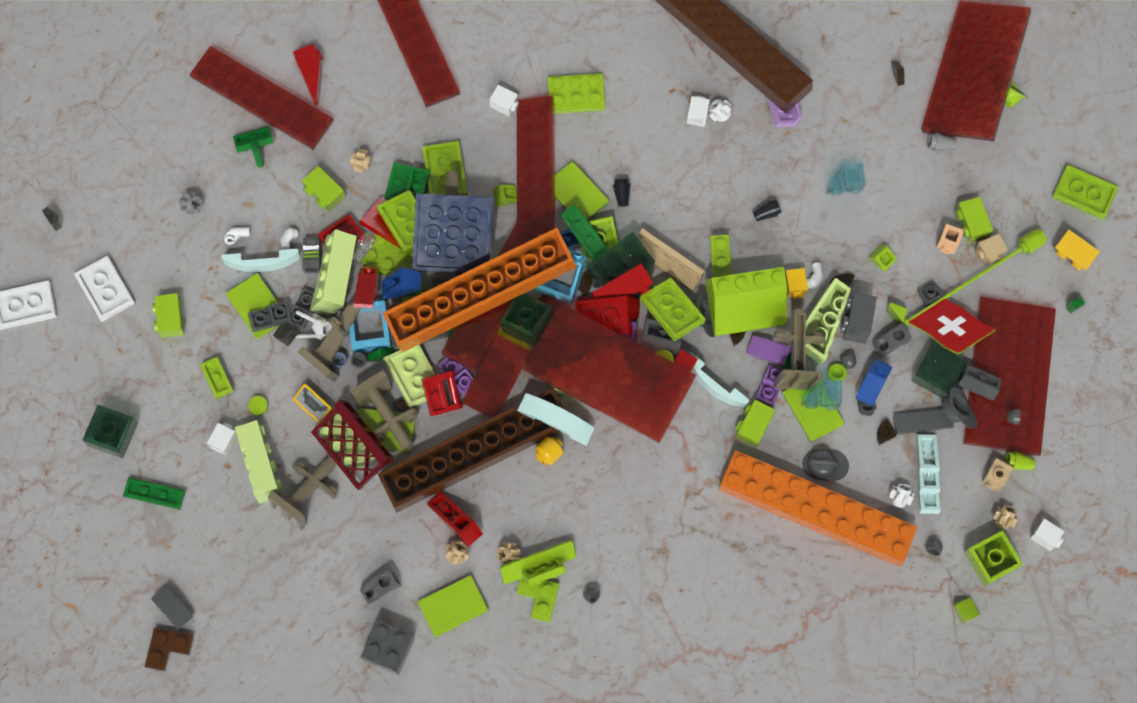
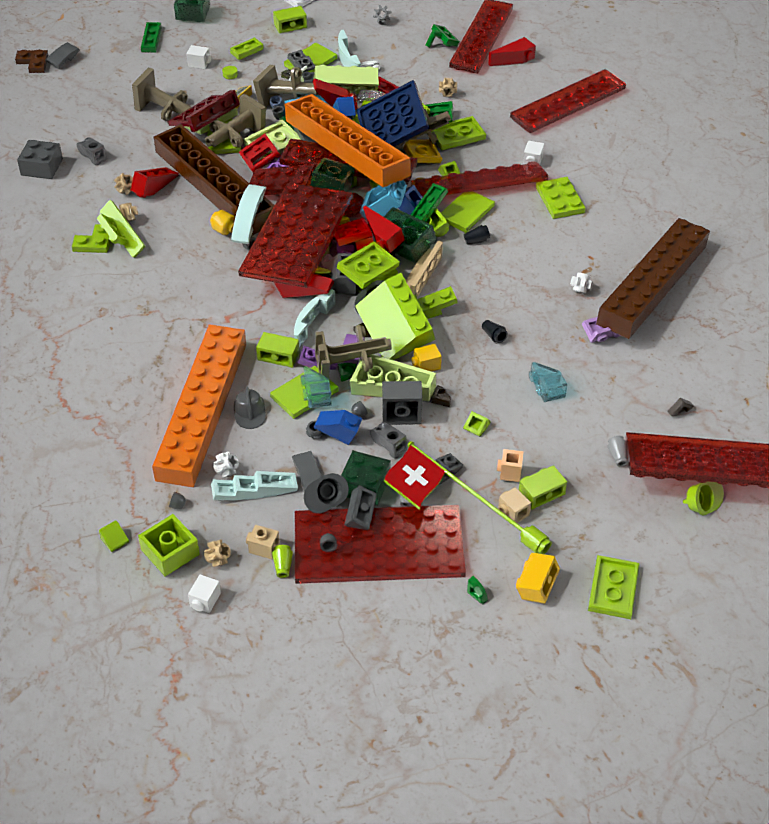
camera: 80 degrees right, 25 degrees down
(235, 233) = (364, 40): white arm -> none
(257, 460) = (182, 73): yellowish green wedge -> none
(323, 189) = (419, 71): lime brick -> none
(452, 606) = (80, 193): lime tile -> none
(591, 594) = (98, 266): dark grey hinge -> none
(698, 111) = (573, 266): white brick -> none
(817, 277) = (442, 376): white arm -> none
(837, 372) = (344, 403): lime tile -> none
(885, 432) = (291, 449): dark brown tile -> none
(897, 312) = (419, 436): lime slope -> none

